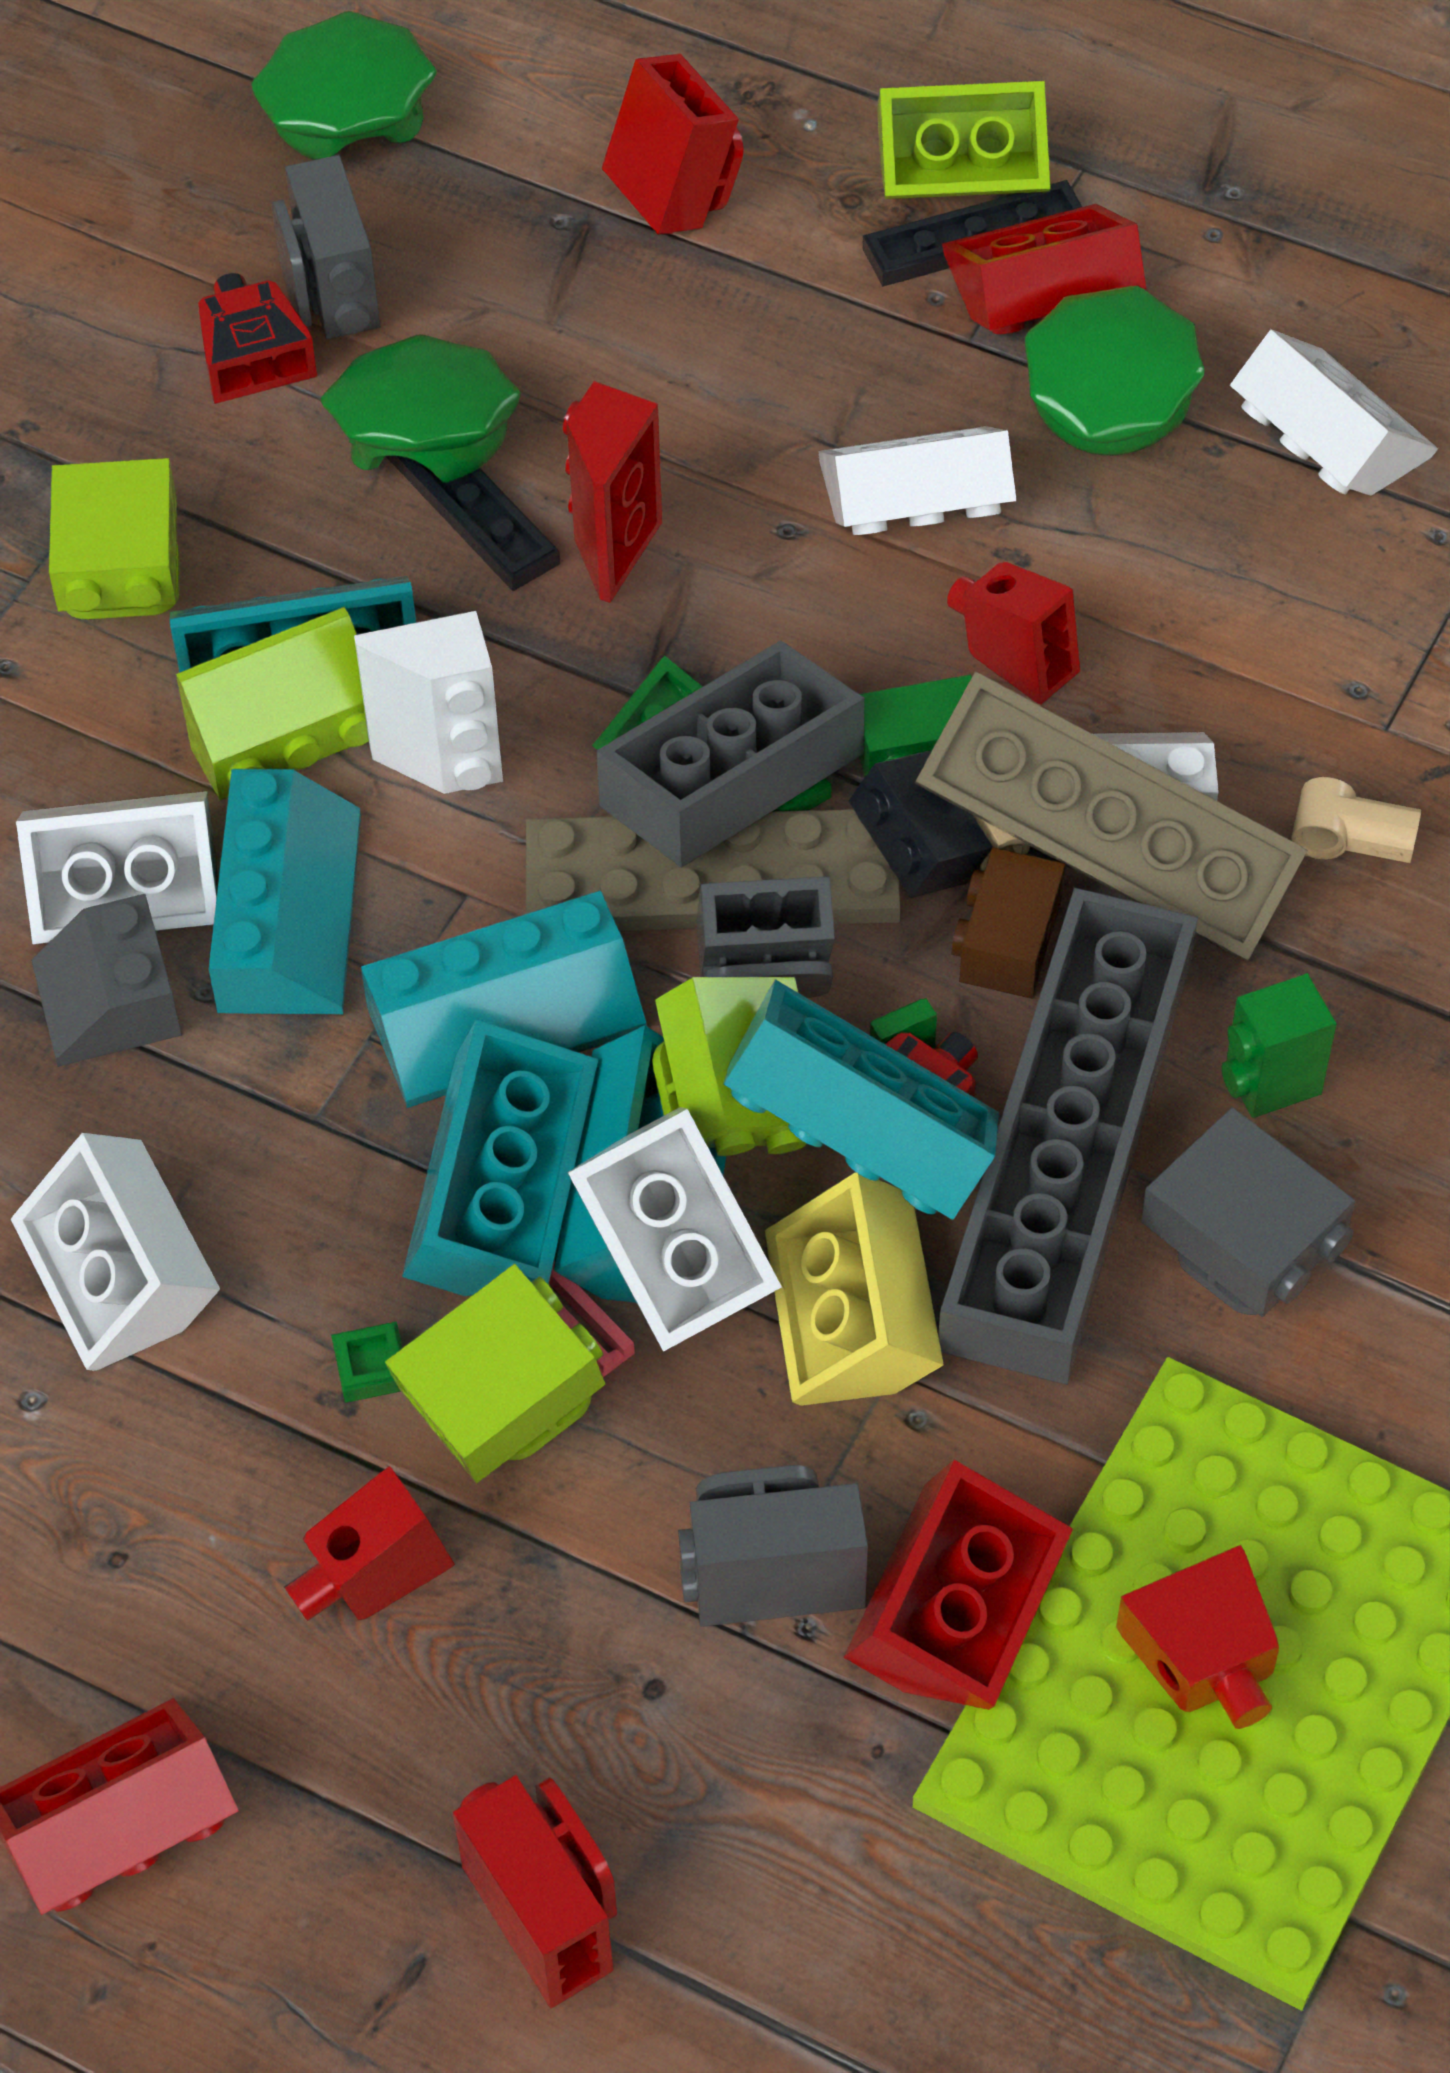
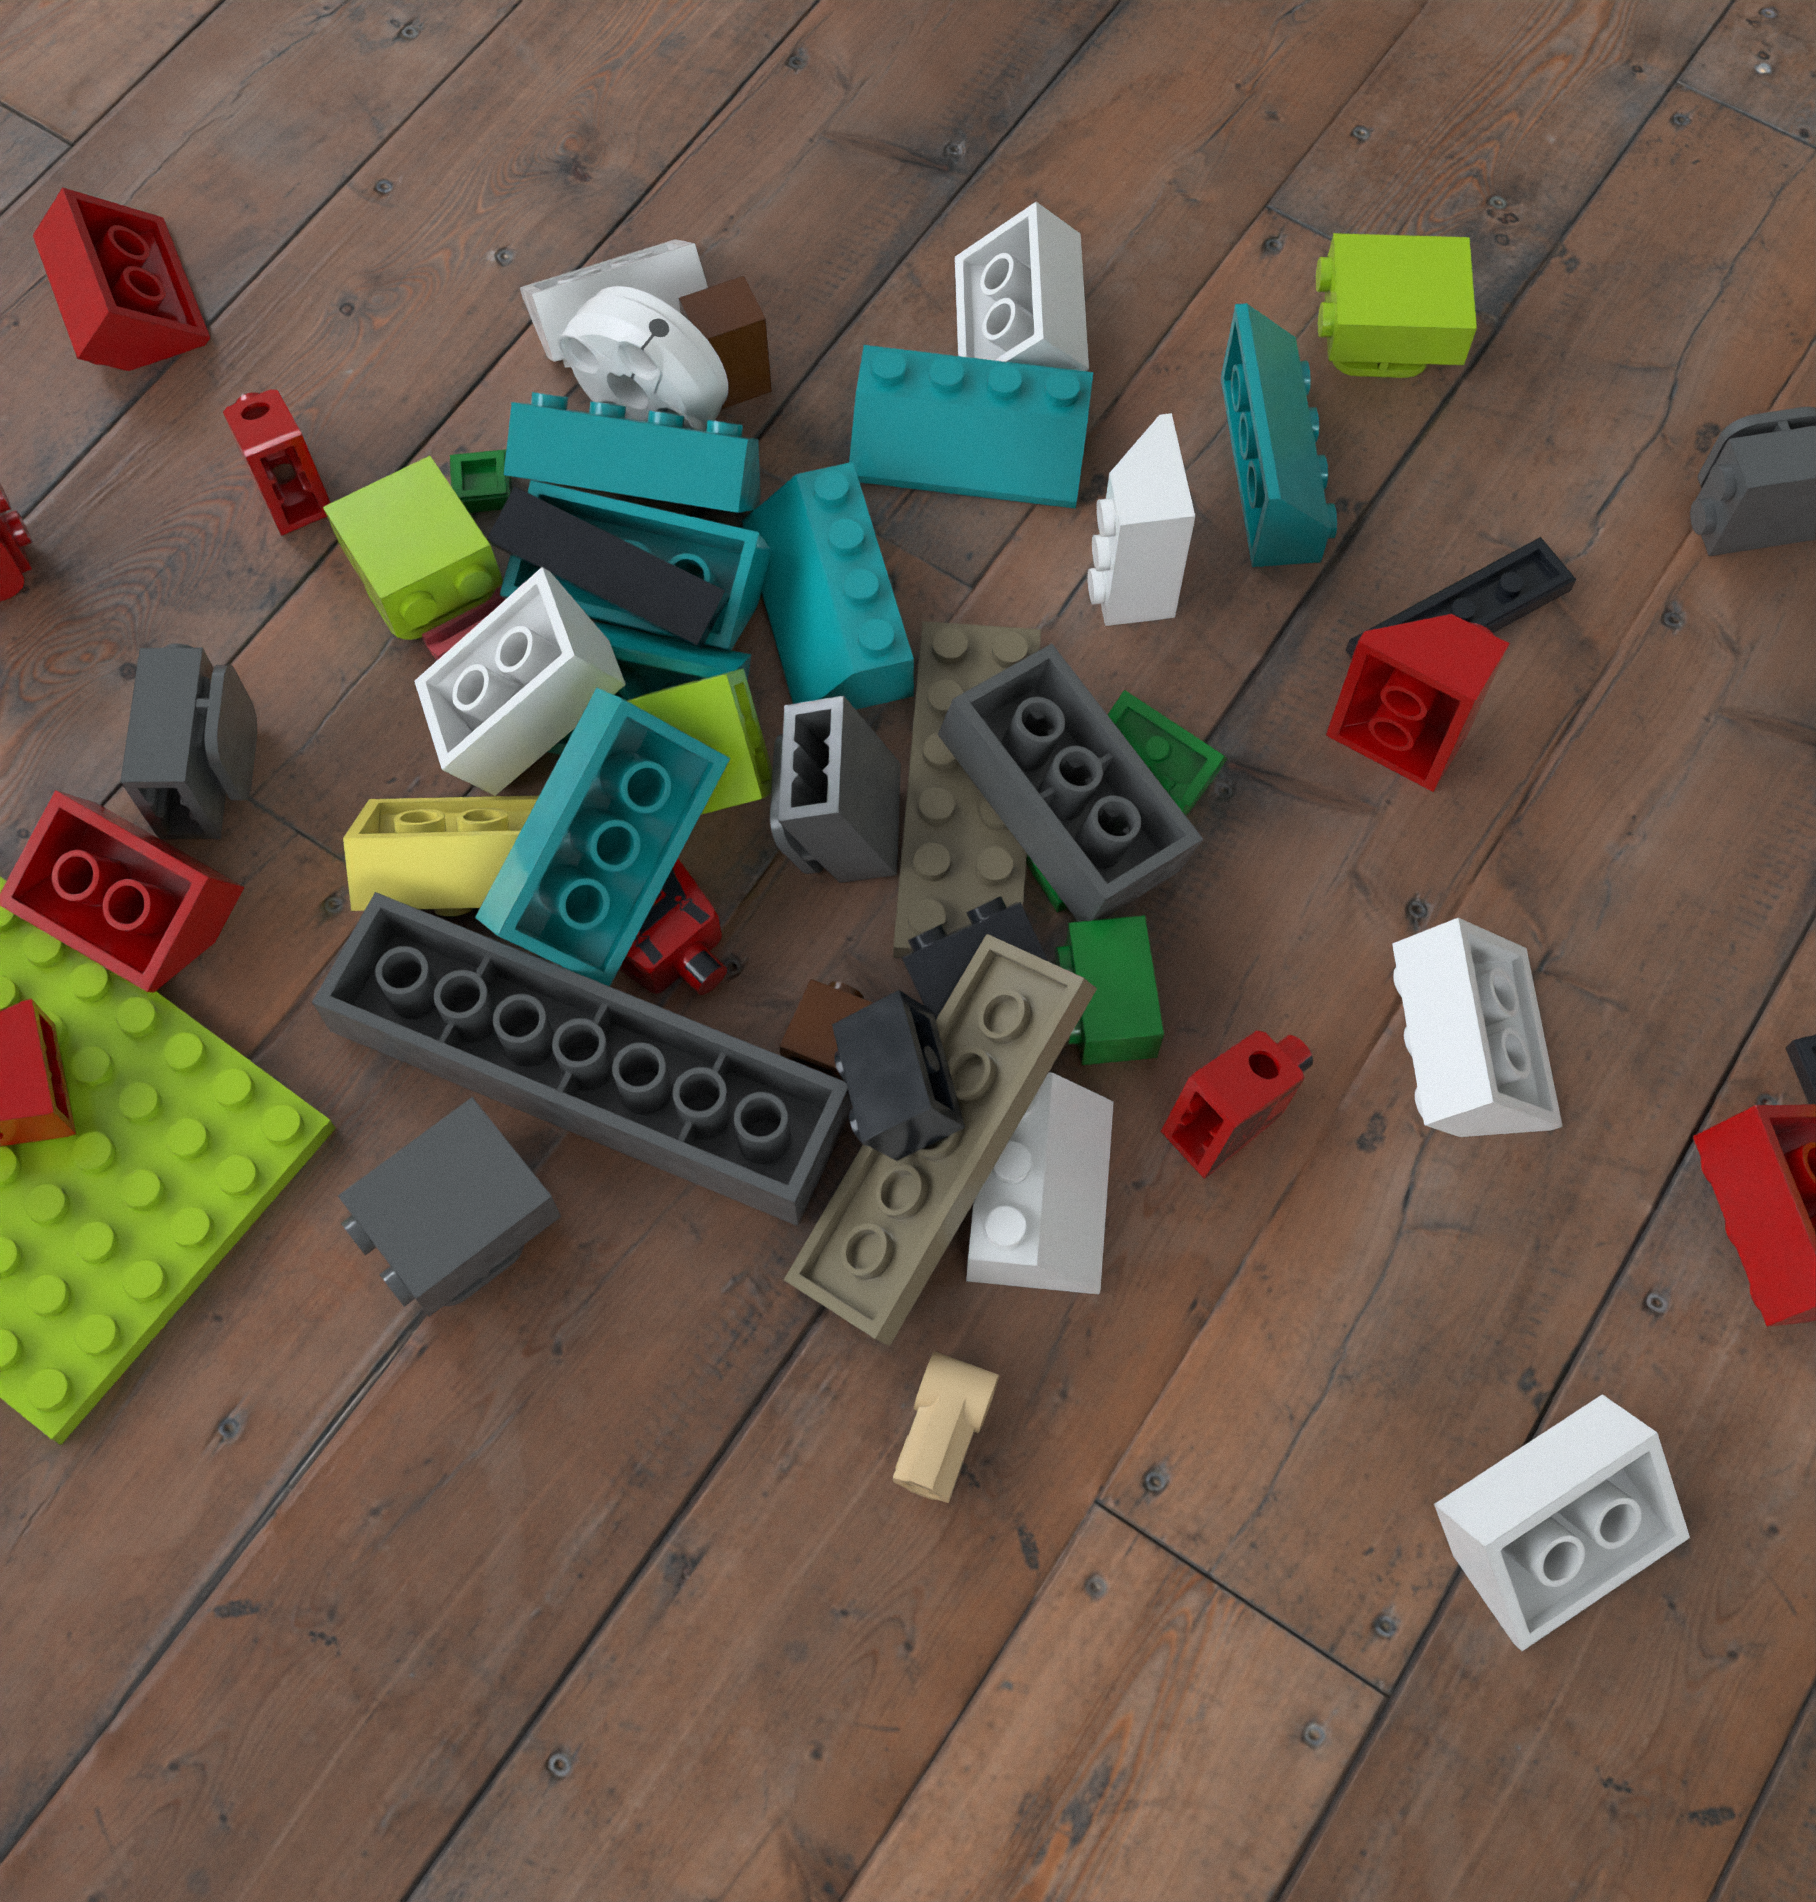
camera: 95 degrees right, 10 degrees up
(105, 983) = (896, 305): dark grey slope -> none
(202, 1109) = (737, 332): none -> reddish brown brick
(252, 339) = (1667, 425): red torso -> none
(254, 1165) = (644, 357): none -> white piece
(276, 701) = (1169, 375): lime slope -> none
(380, 1162) = (633, 456): none -> teal slope
(425, 404) = (1562, 558): green piece -> none
(523, 1163) = (608, 568): none -> black tile
(915, 1018) = (735, 926): green tile -> none
(1073, 835) = (896, 1076): none -> black brick
(1113, 370) = (1625, 1256): green piece -> none
(1278, 1046) = (635, 1267): green brick -> none

